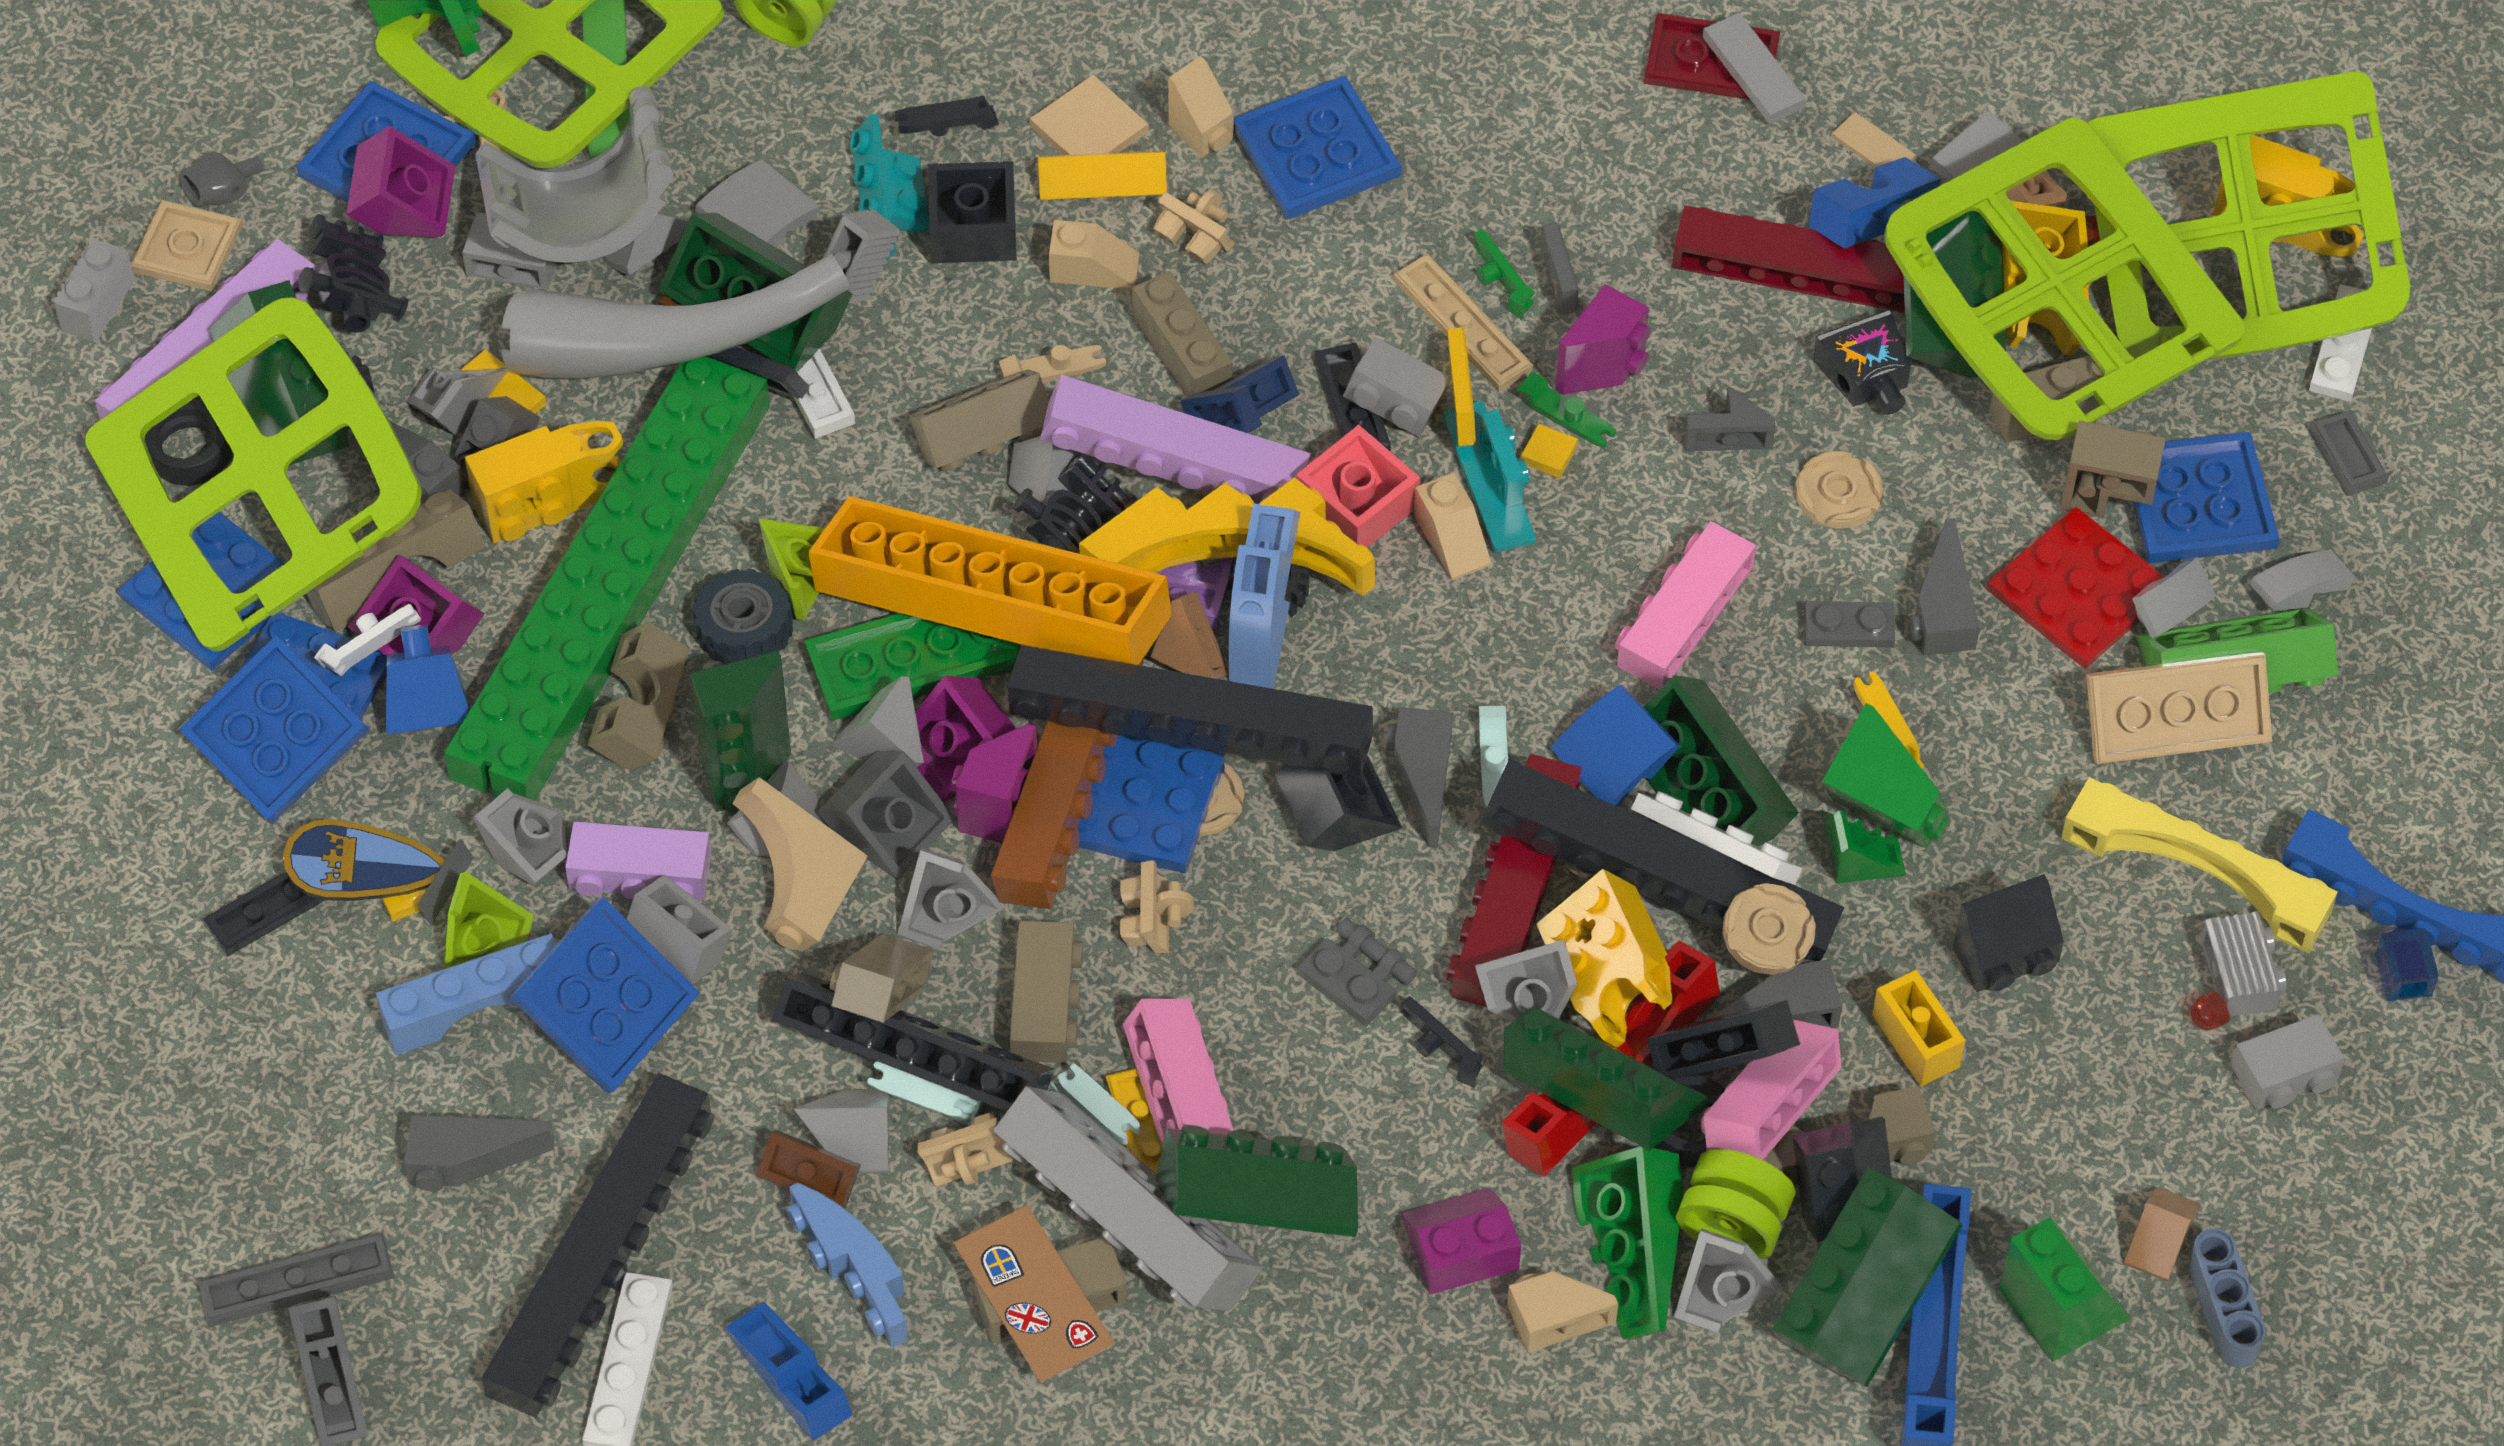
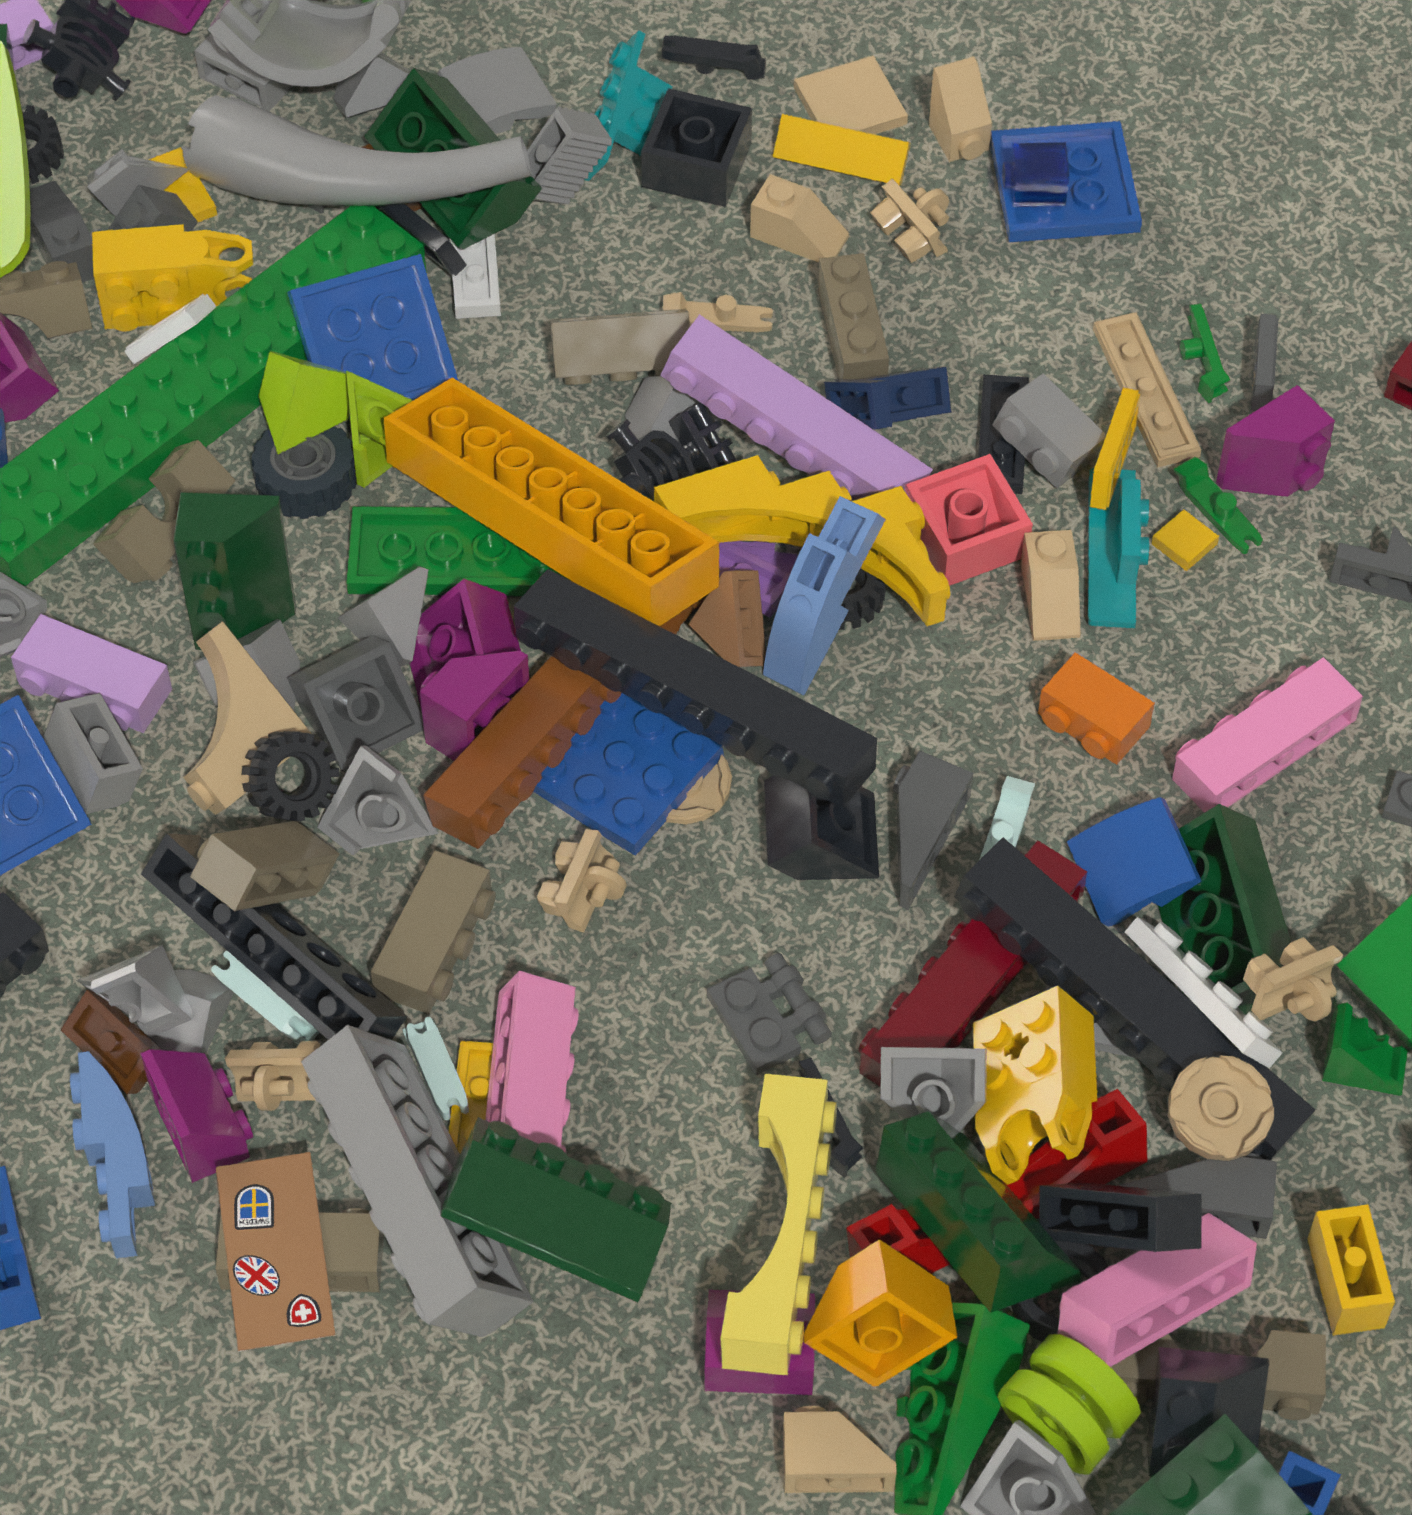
camera: 20 degrees right, 0 degrees up
(566, 525) = (169, 328): none -> white tile
(719, 555) = (301, 399): none -> lime slope
(757, 470) = (377, 327): none -> blue plate
(823, 1116) = (144, 990): none -> light grey slope
(843, 898) = (317, 775): none -> black tyre
(910, 1205) = (197, 1110): none -> magenta slope
(1295, 150) = (1037, 174): none -> clear blue brick
(1468, 1214) = (761, 1319): none -> light yellow arch
(1531, 625) = (1095, 709): none -> orange brick
(1558, 1183) = (881, 1315): none -> light orange slope
(1798, 805) = (1299, 985): none -> tan hips

